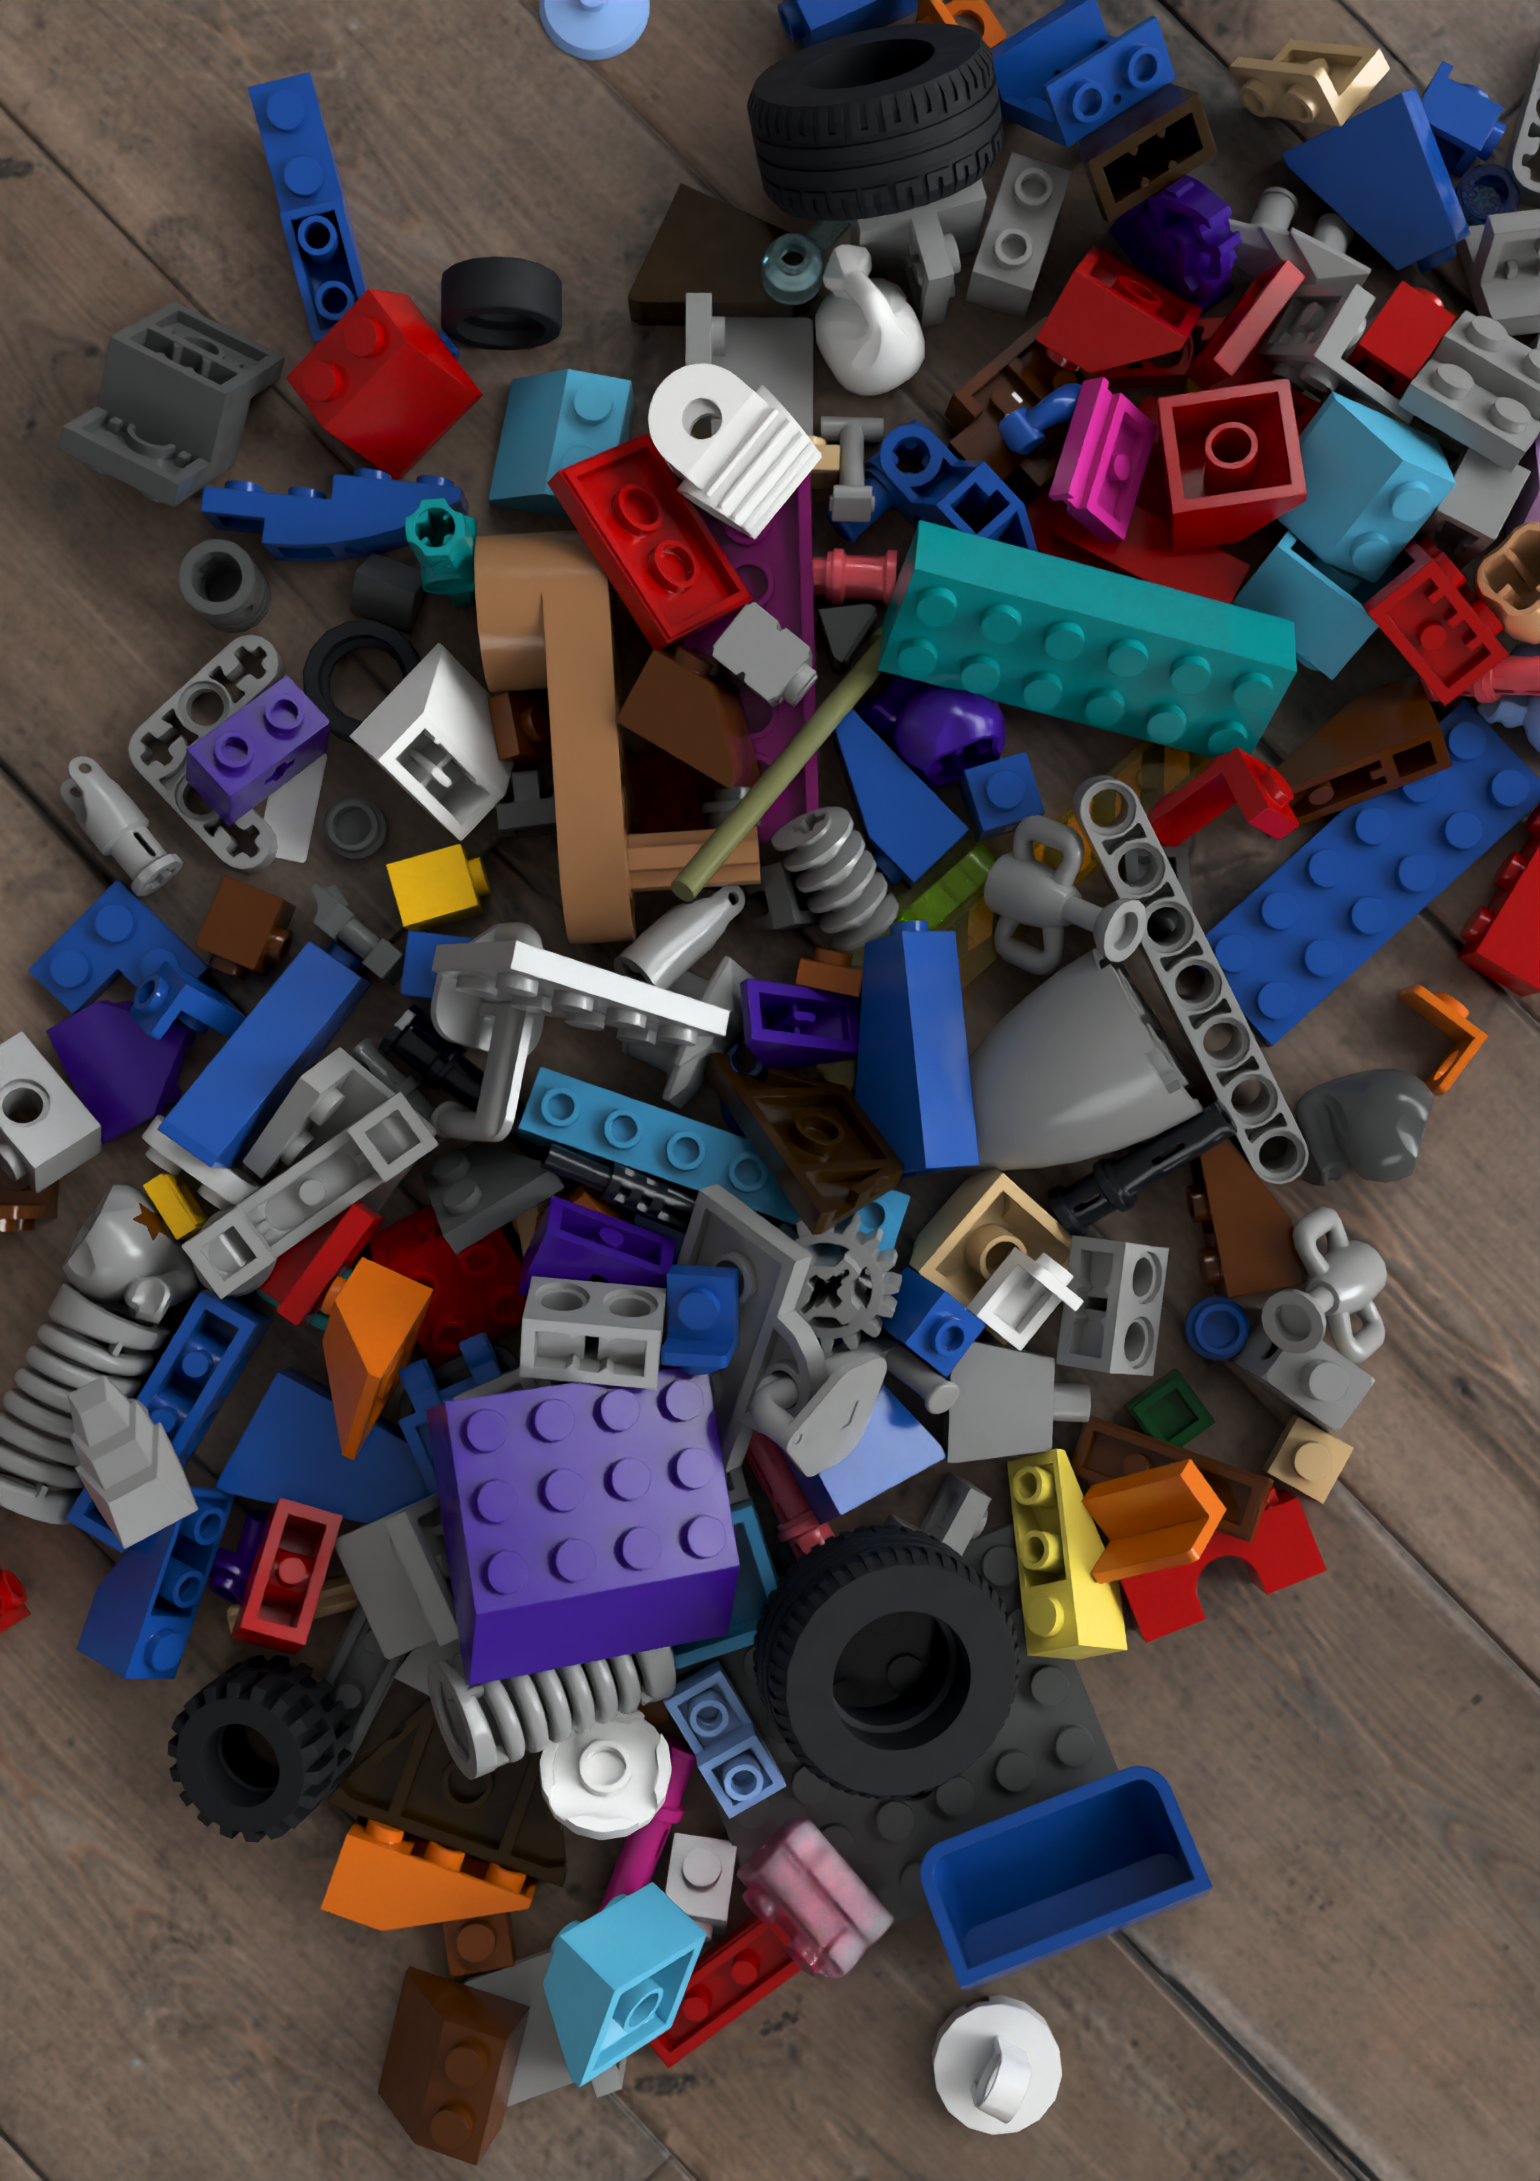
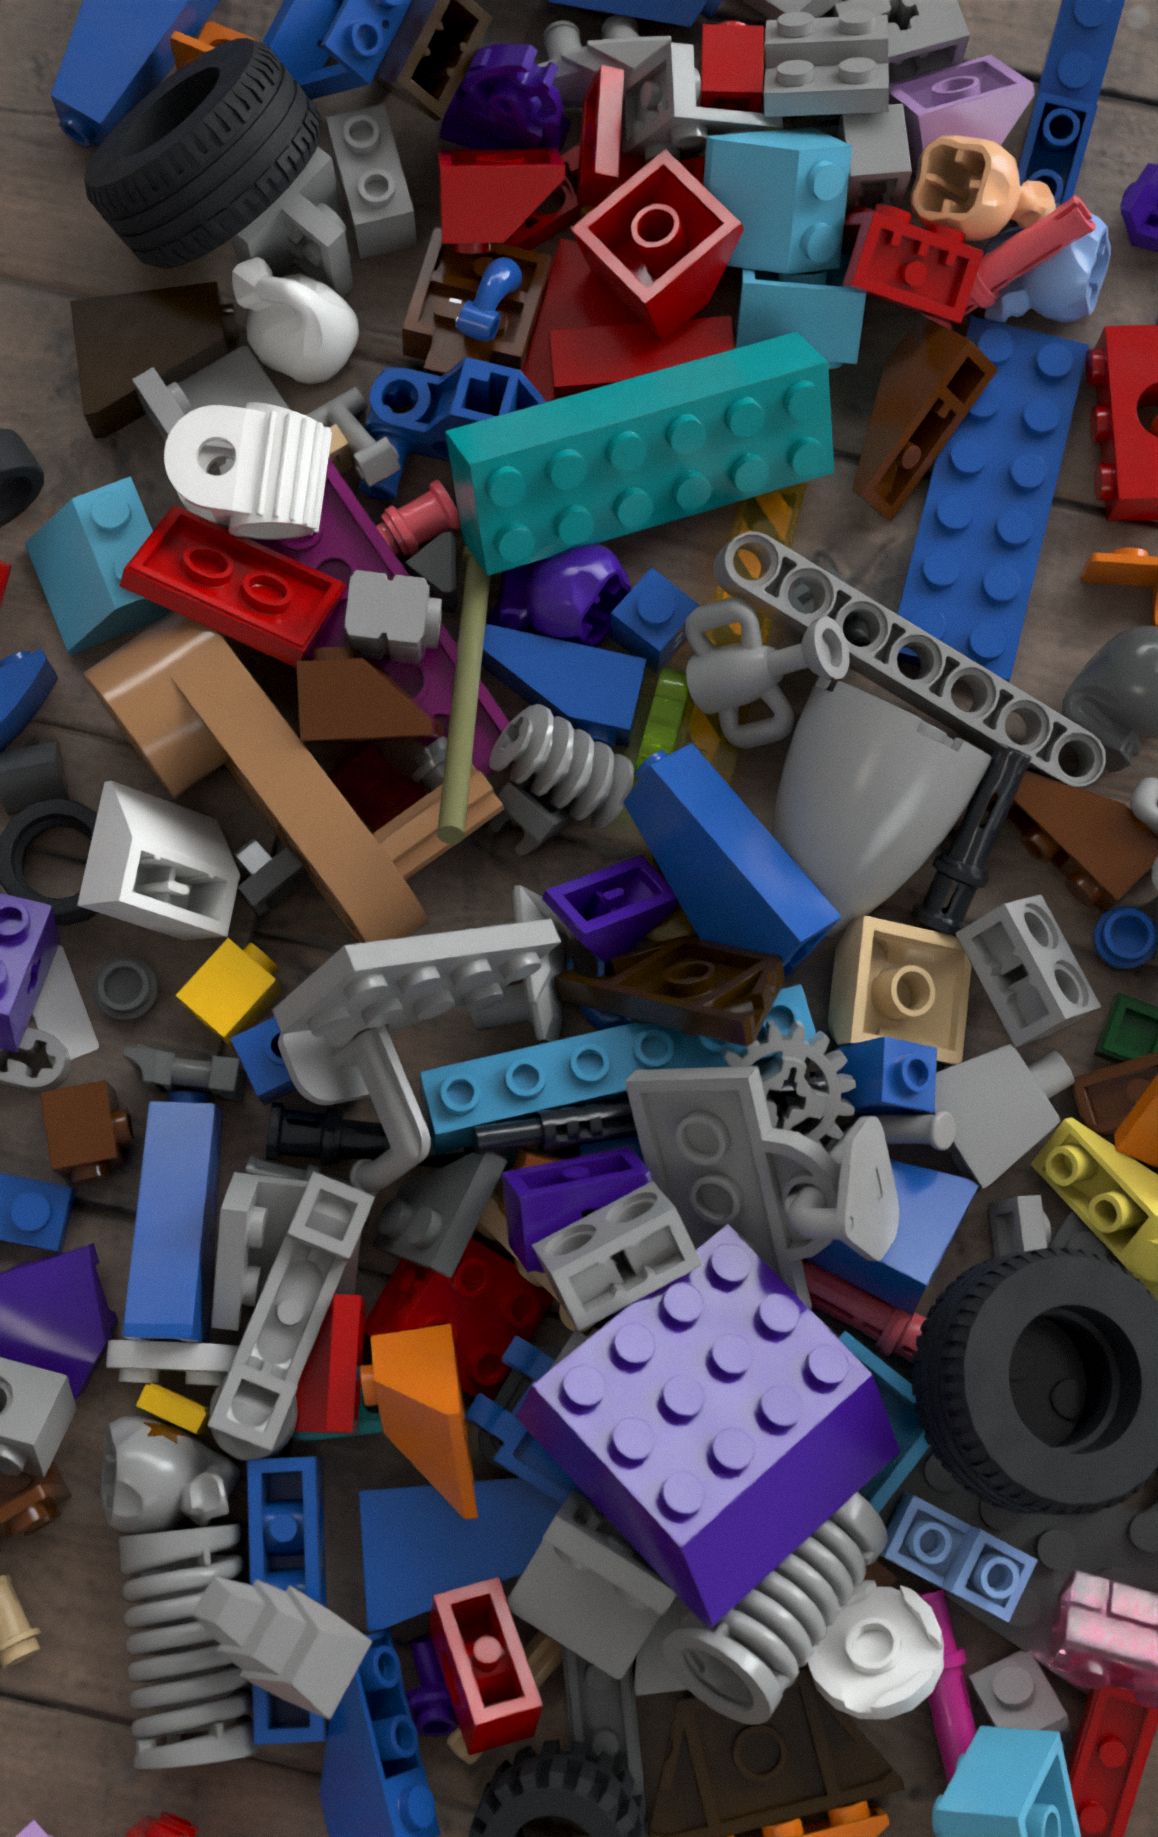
camera: 30 degrees left, 10 degrees down
(180, 995) = (60, 1223): blue bracket -> none
(445, 549) = (67, 701): teal piece -> none
(521, 728) = (218, 814): dark orange plate -> none
(679, 937) = (468, 887): light grey piece -> none
(701, 1318) = (699, 1185): blue bracket -> none
(803, 281) = (220, 316): clear light blue bar -> none
(830, 971) = (607, 848): dark orange plate -> none
(1023, 1296) = (951, 1005): white bracket -> none
(1103, 461) = (560, 303): dark pink plate -> none
(1226, 781) = (827, 497): red bracket -> none

